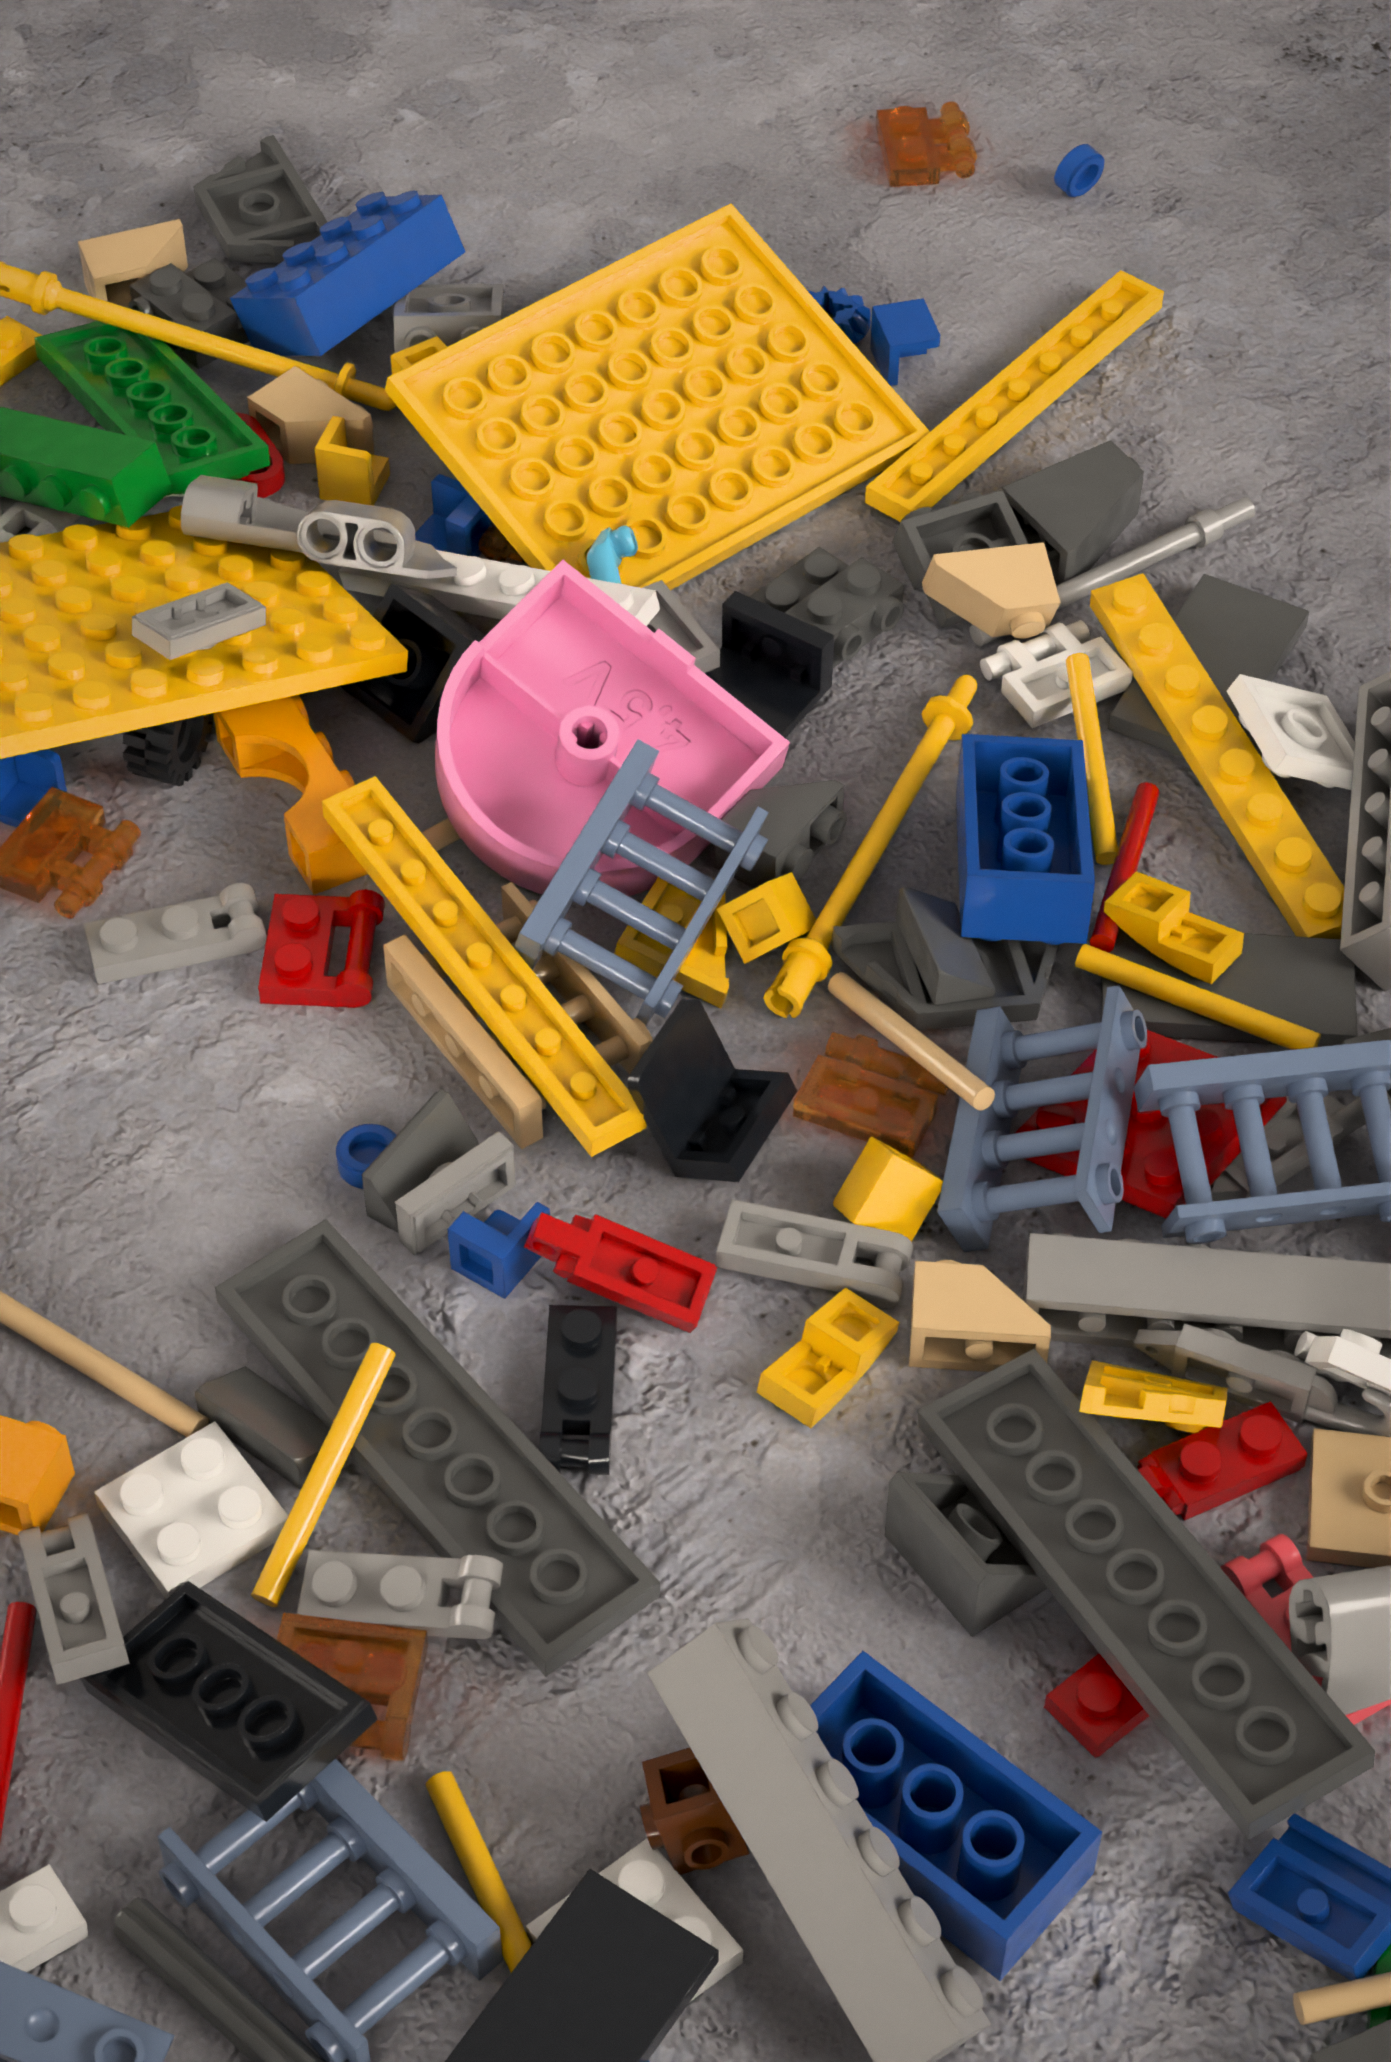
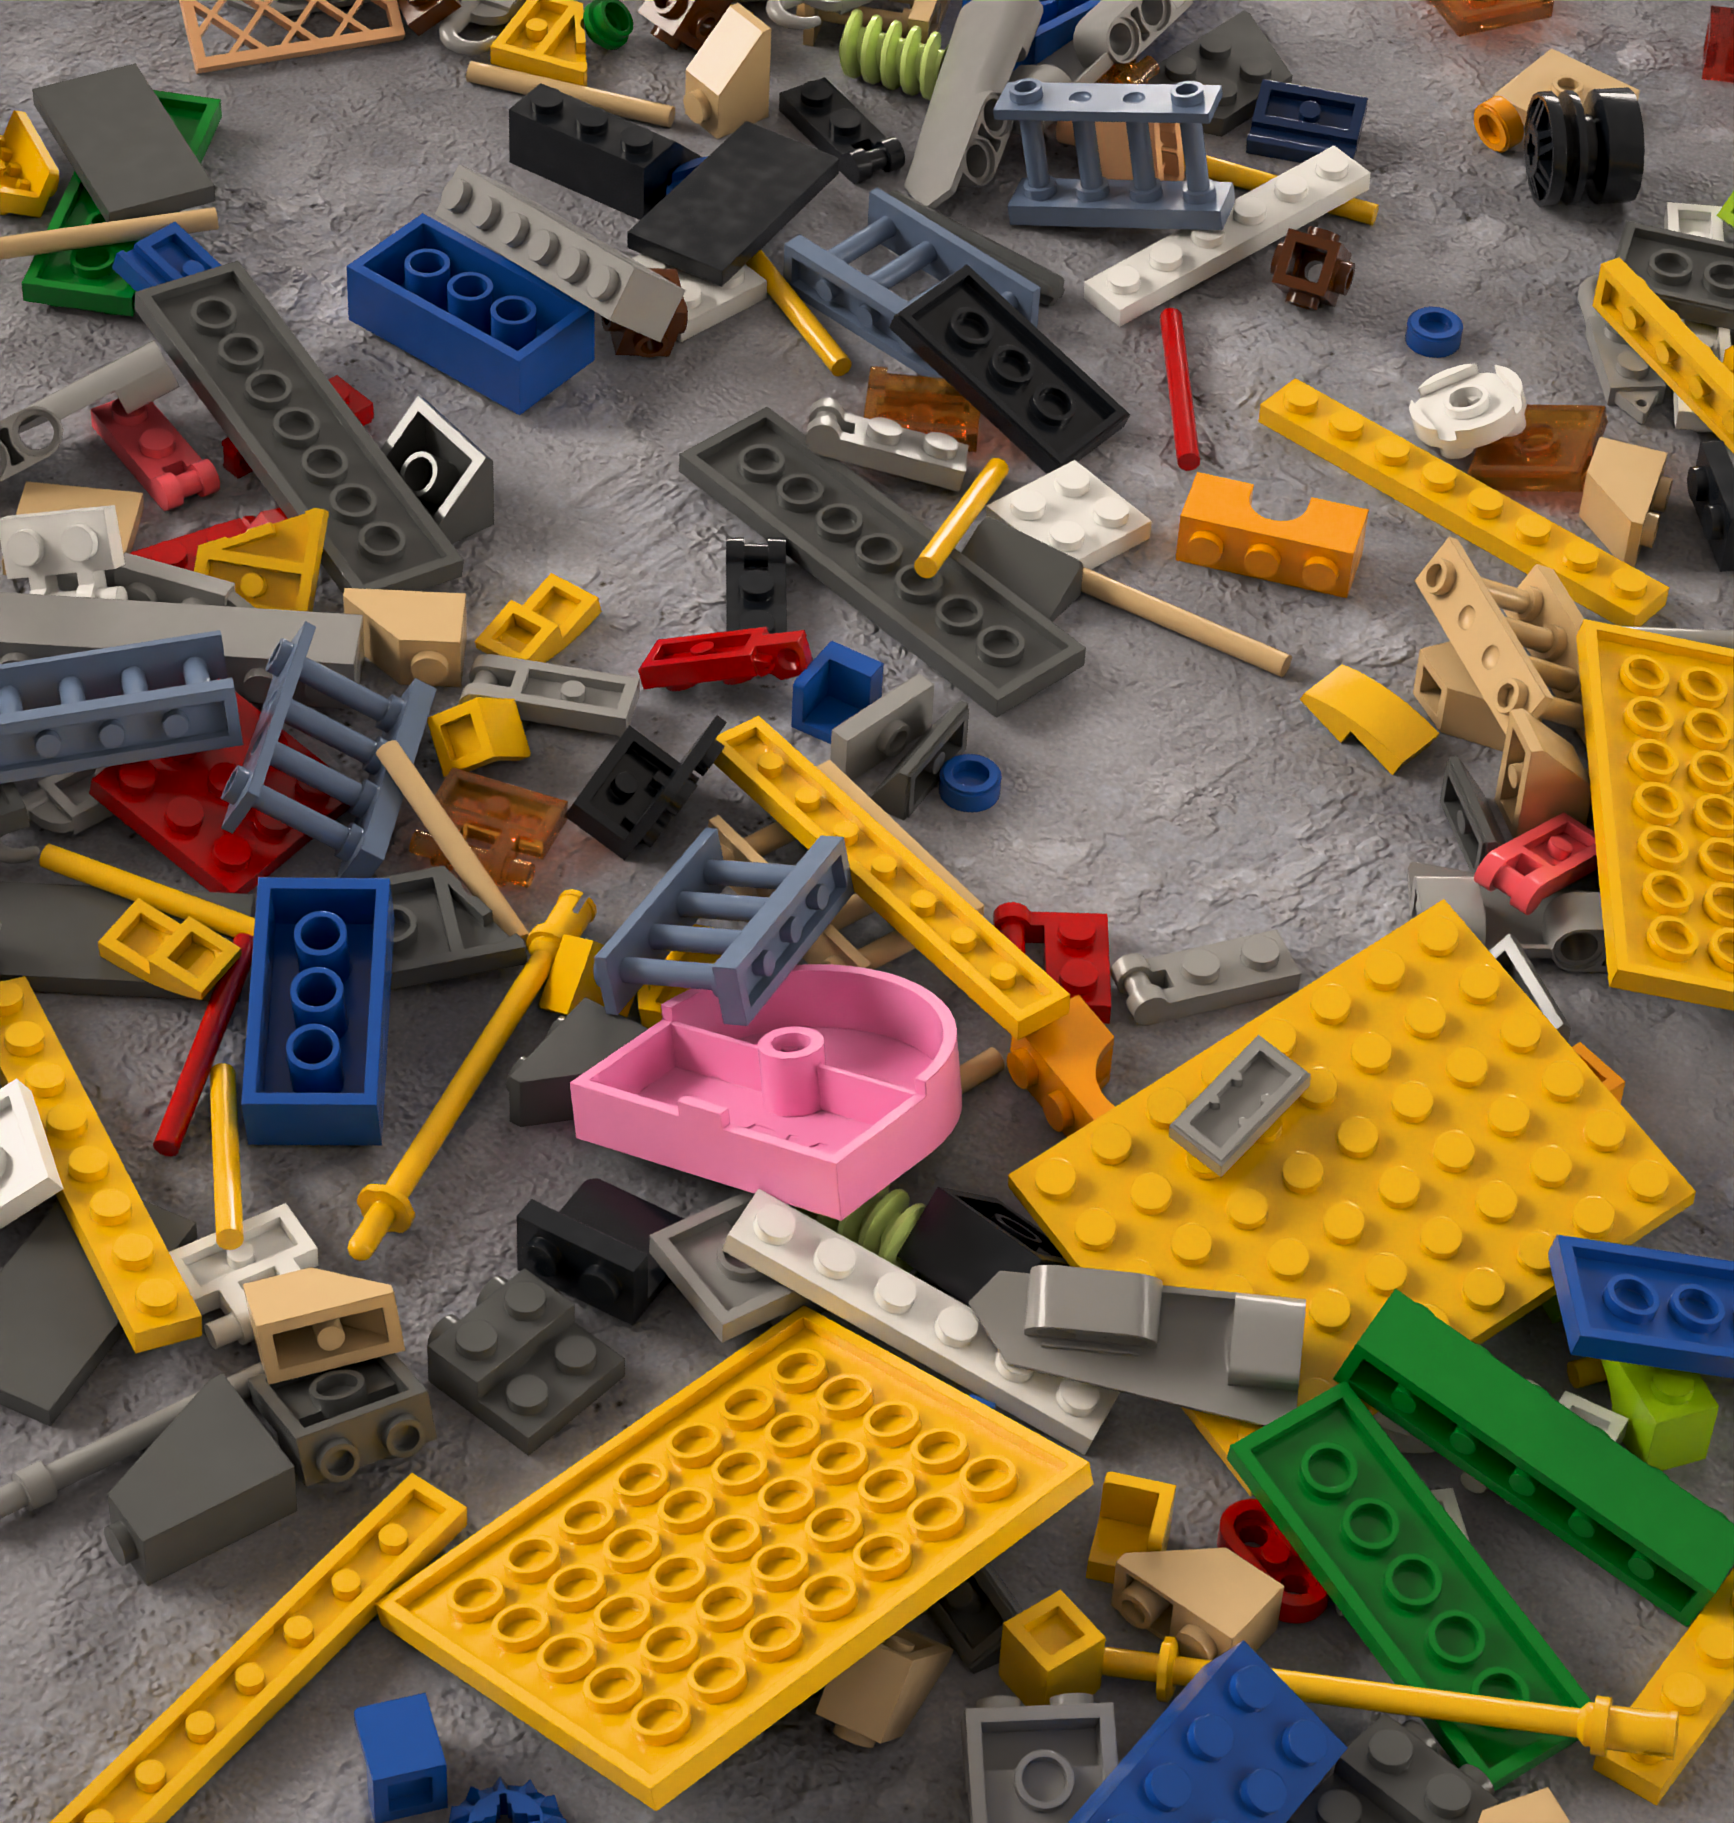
camera: 175 degrees right, 5 degrees down
(73, 1599) = (1145, 439): light grey plate -> none
(608, 552) = (787, 1347): medium azure arm -> none
(943, 958) = (422, 923): dark grey slope -> none

